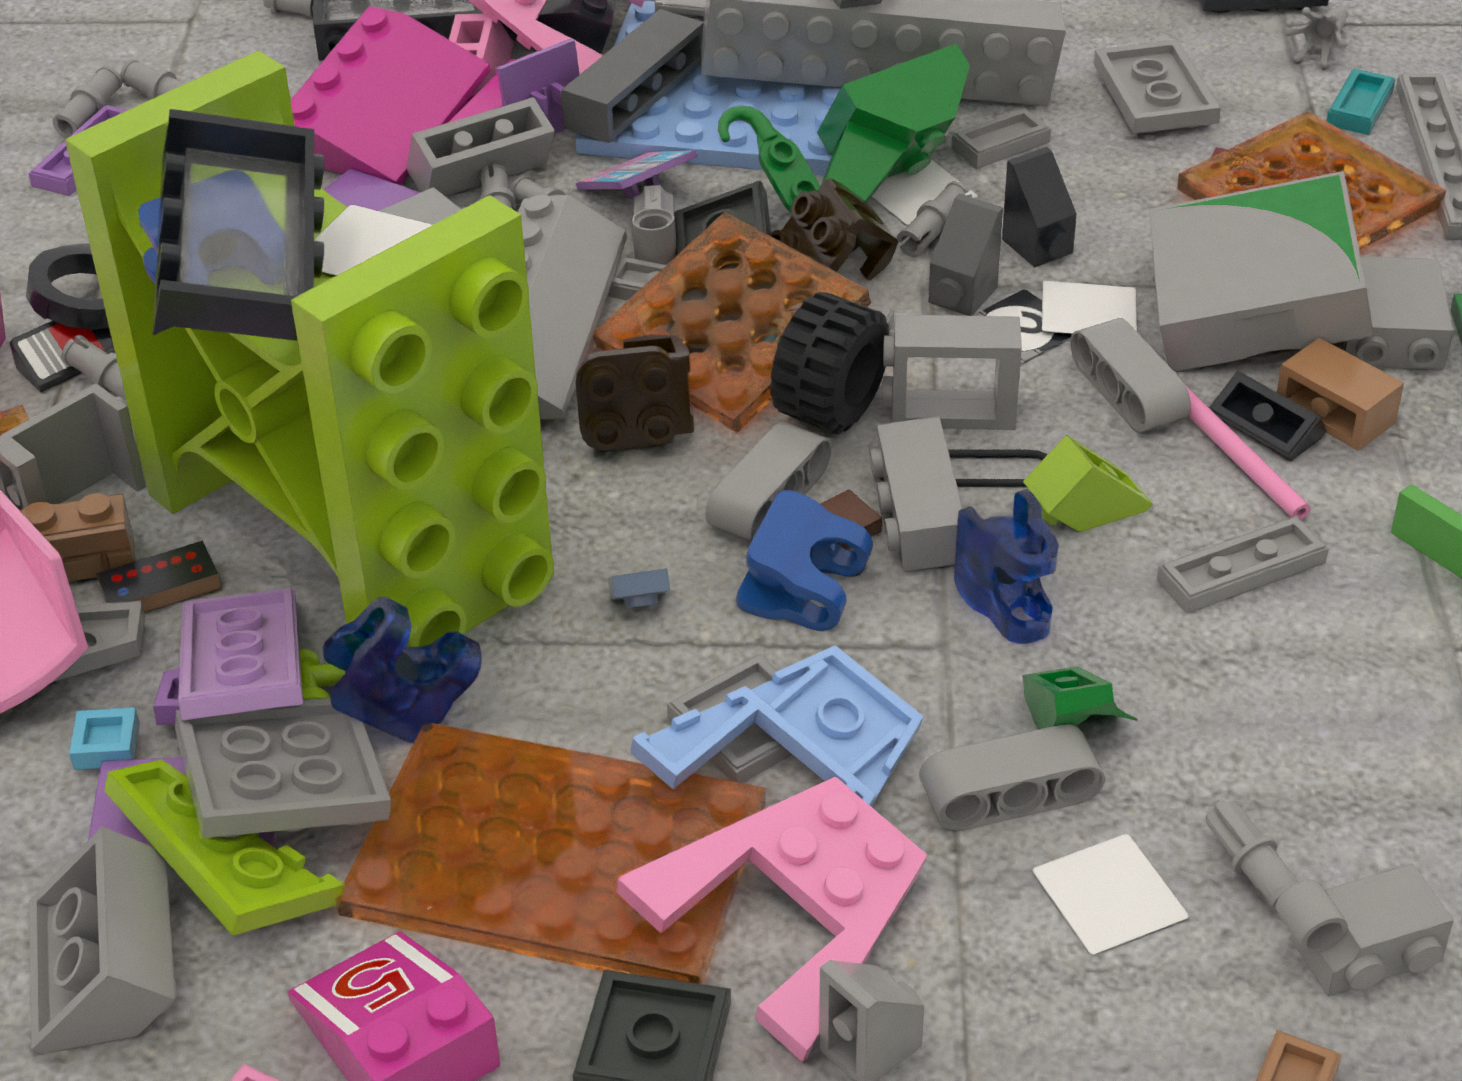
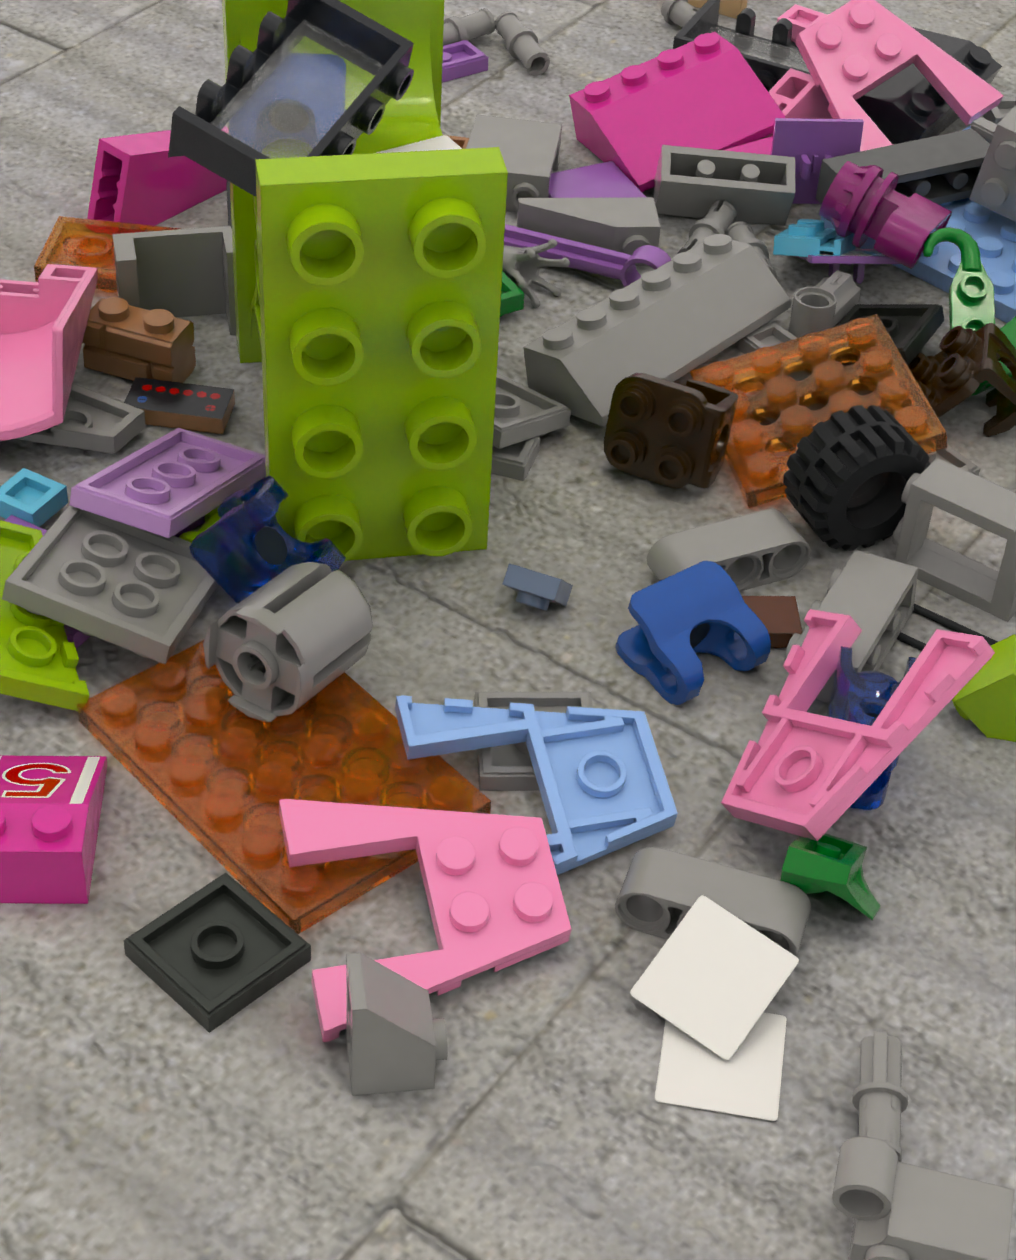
camera: 30 degrees right, 0 degrees up
(482, 739) = (289, 639): none -> light grey cylinder
(596, 169) = (810, 238): none -> medium azure plate
(641, 116) = (870, 207): none -> magenta beam
(1016, 621) = (819, 765): none -> bright pink wing
(1064, 831) = (714, 977): none -> white sticker

